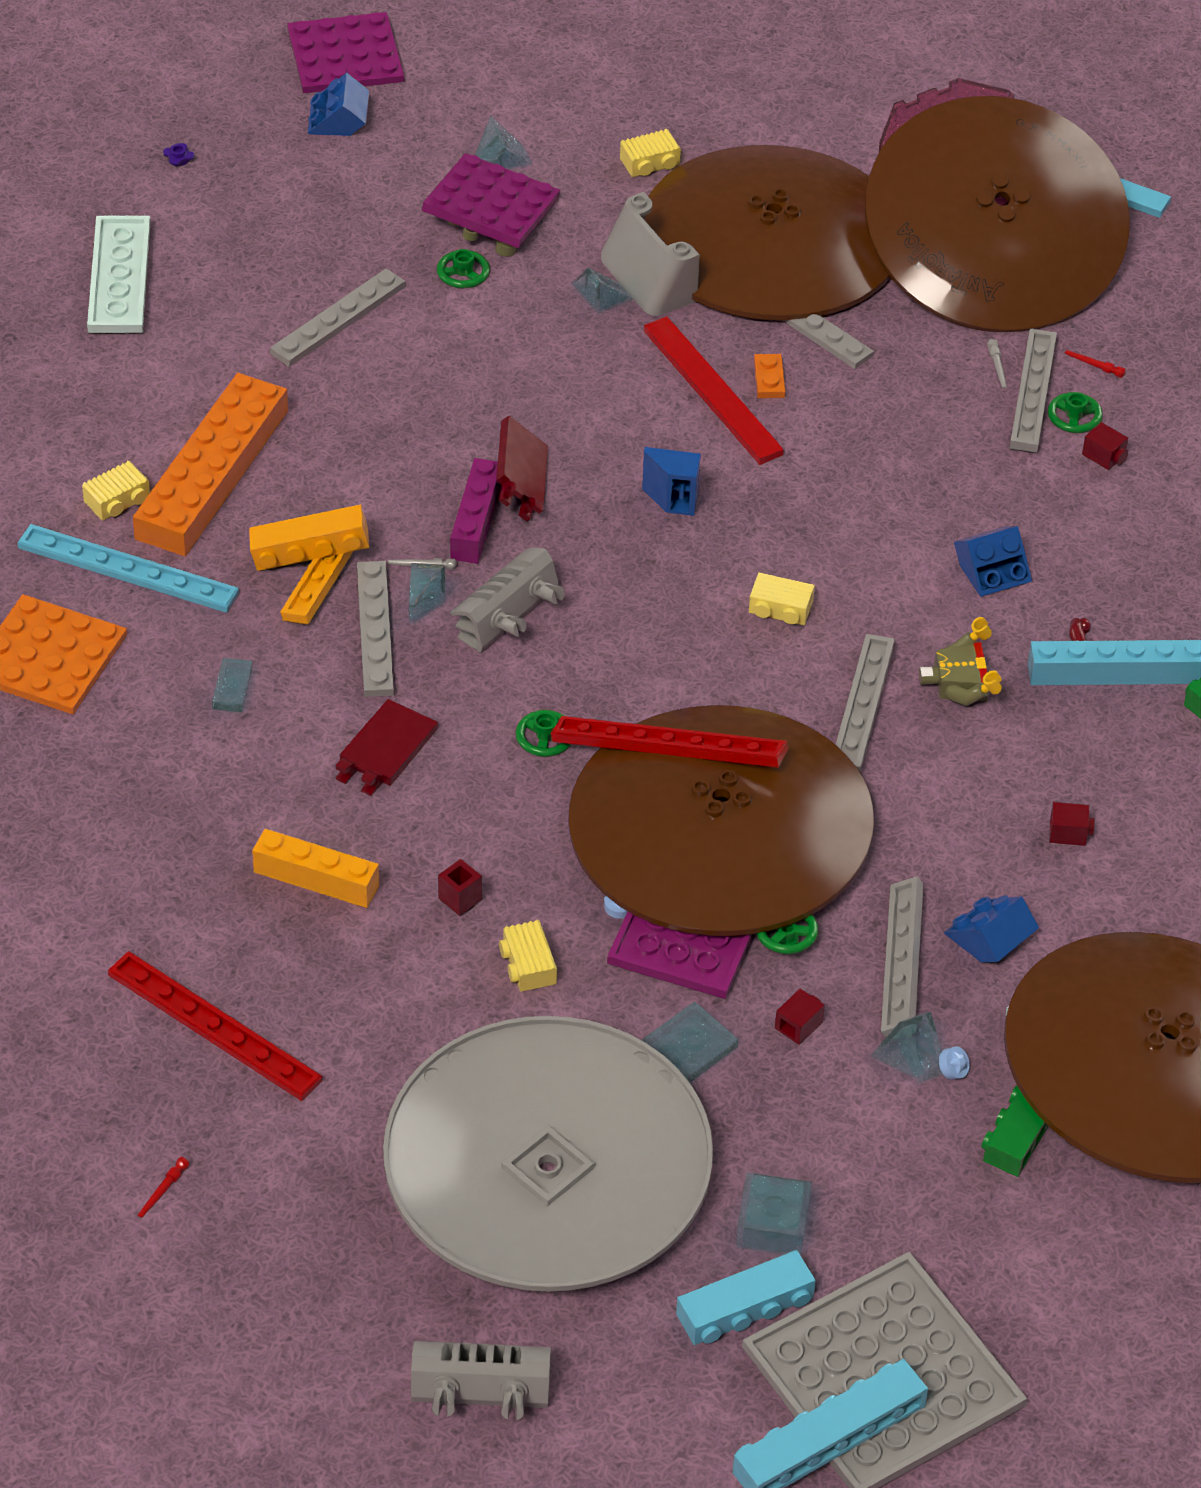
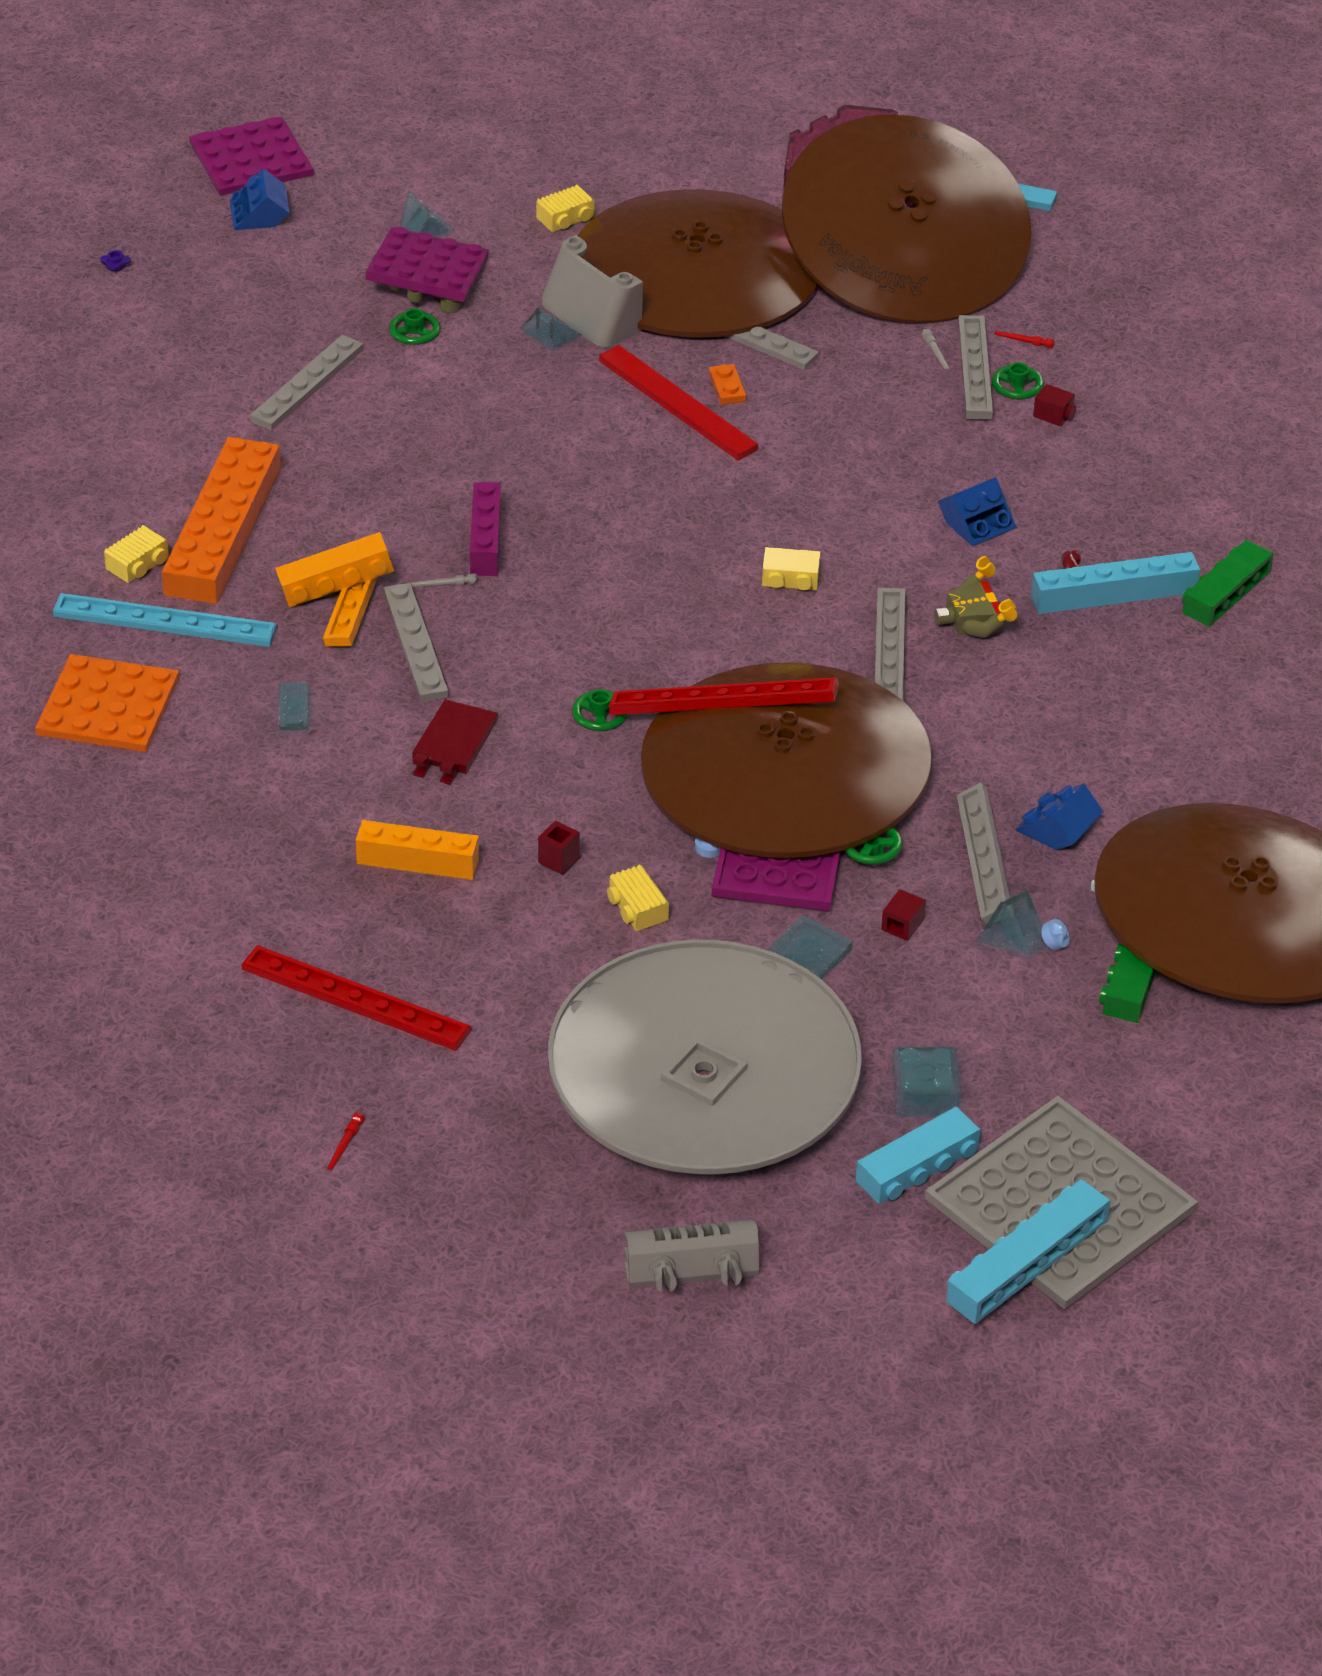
camera: 10 degrees left, 5 degrees down
(119, 274) = (87, 369): light aqua plate -> none
(426, 590) = (456, 600): clear light blue slope -> none
(507, 598) = (536, 598): light grey piece -> none
(521, 467) = (519, 486): dark red tile -> none
(672, 479) = (663, 478): blue slope -> none
(1070, 824) = (1107, 722): dark red brick -> none

